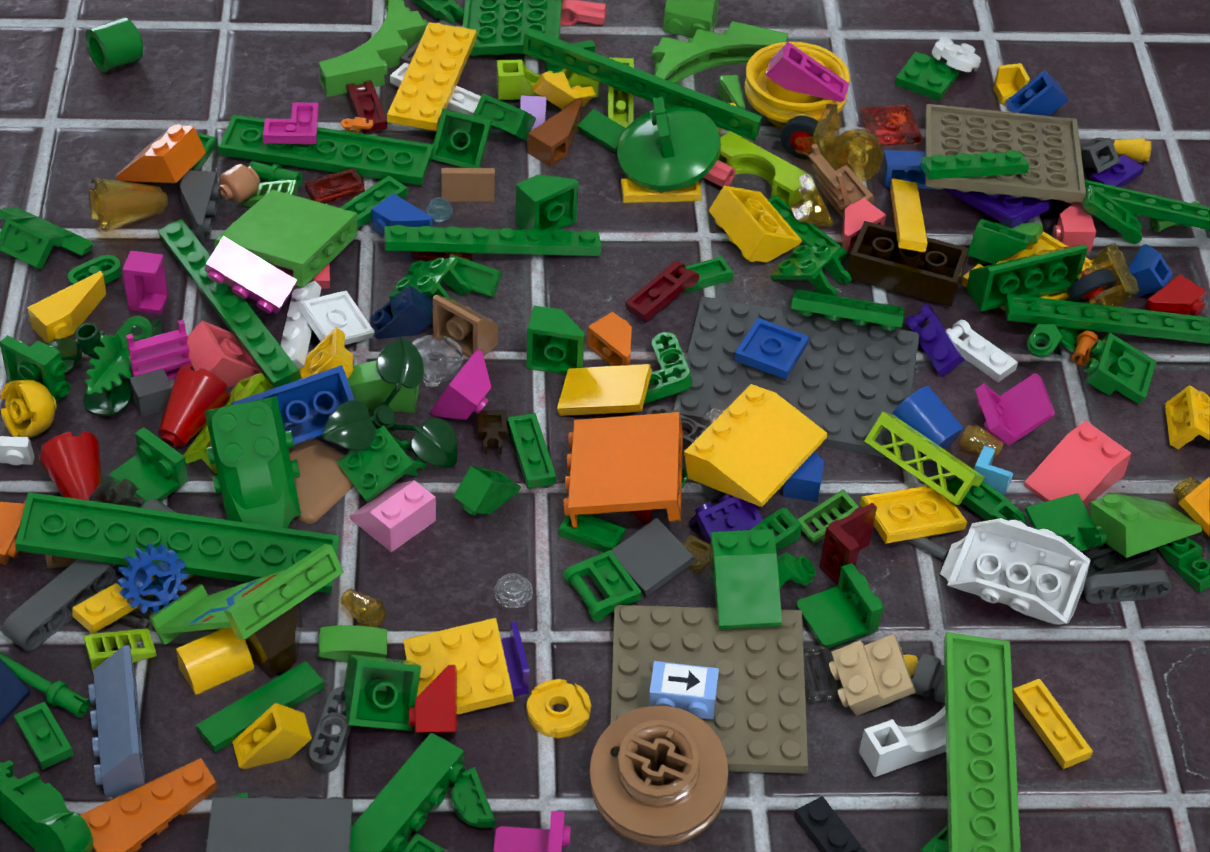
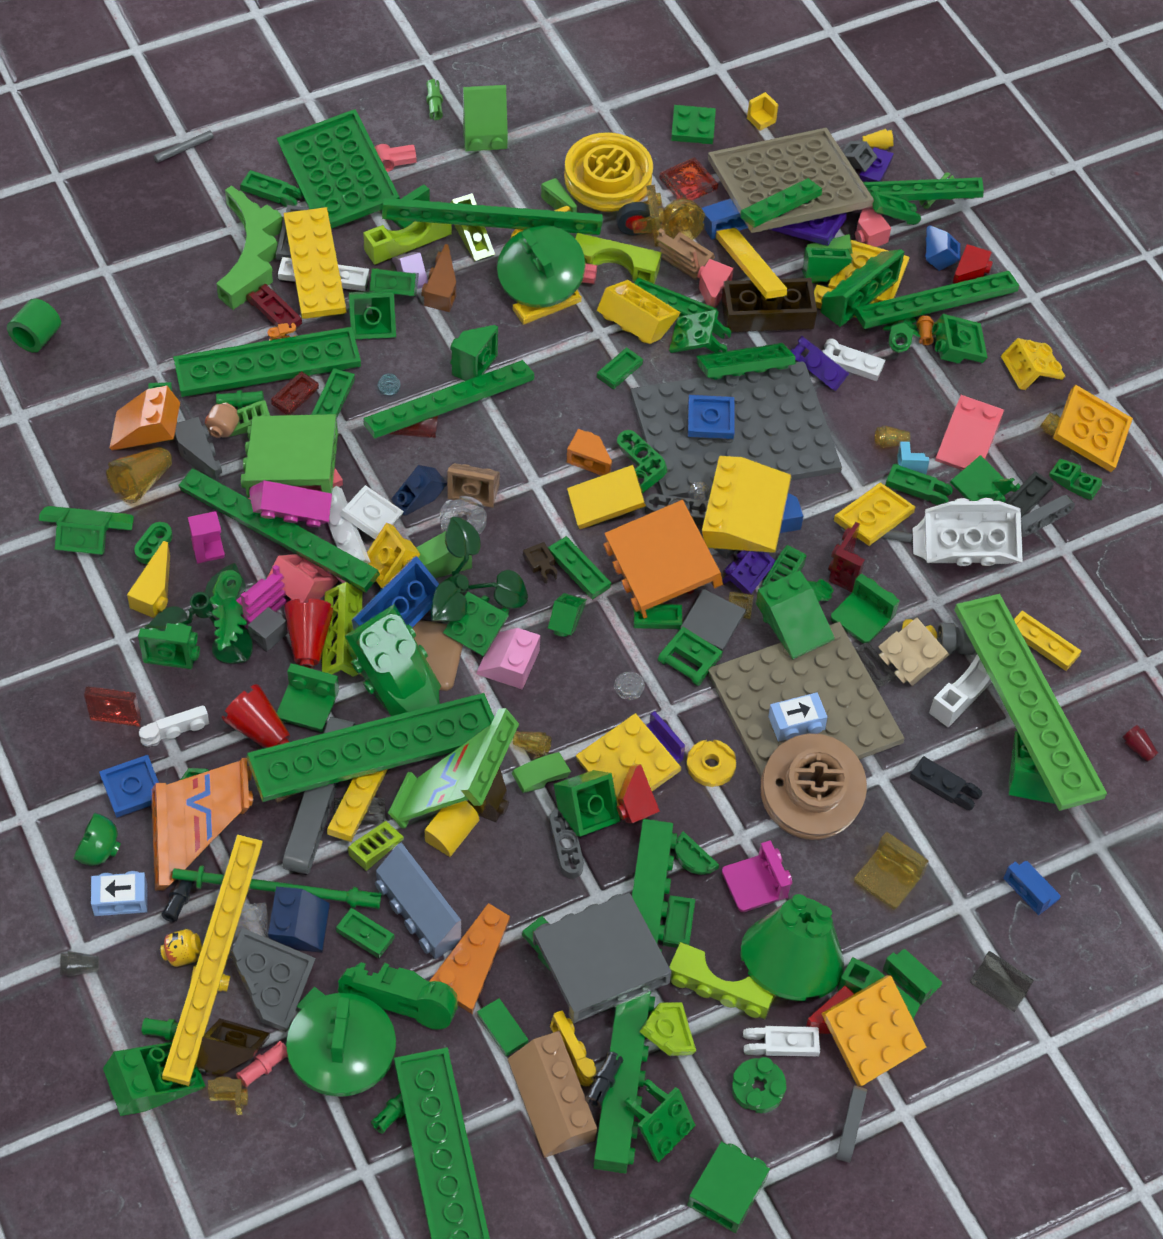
camera: 25 degrees left, 10 degrees up
(28, 408) = (182, 681): yellow cylinder -> none
(117, 492) = (297, 724): clear smoke brick -> none
(138, 578) = (377, 783): blue gear -> none
(272, 737) = (530, 868): yellow slope -> none
(285, 690) = (504, 847): green tile -> none
(298, 130) = (239, 352): dark pink plate -> none
(398, 212) = (365, 402): blue slope -> none
(427, 278) = (421, 450): green plate -> none
(466, 391) = (506, 537): dark pink slope -> none
(468, 184) = (398, 352): medium nougat slope -> none
(480, 277) = (450, 434): green tile -> none
(553, 341) = (550, 471): green slope -> none
(558, 91) = (425, 242): yellow slope -> none
(601, 130) = (475, 265): green tile -> none
(661, 290) = (600, 395): dark red plate -> none
(707, 50) = (535, 147): bright green arch -> none
(803, 74) = (620, 167): dark pink slope -> none
(812, 207) = (673, 278): clear yellow slope -> none
(831, 505) = (827, 525): bright green slope -> none
(929, 417) = (850, 435): blue brick -> none
(931, 450) = (866, 459): lime fence -> none
(957, 56) = (709, 97): white plate -> none
(1016, 410) = (906, 401): dark pink bracket -> none
(1038, 97) = (787, 118): blue slope -> none
(1105, 280) = (921, 270): clear yellow plate -> none
(1139, 523) = (1033, 463): bright green slope -> none

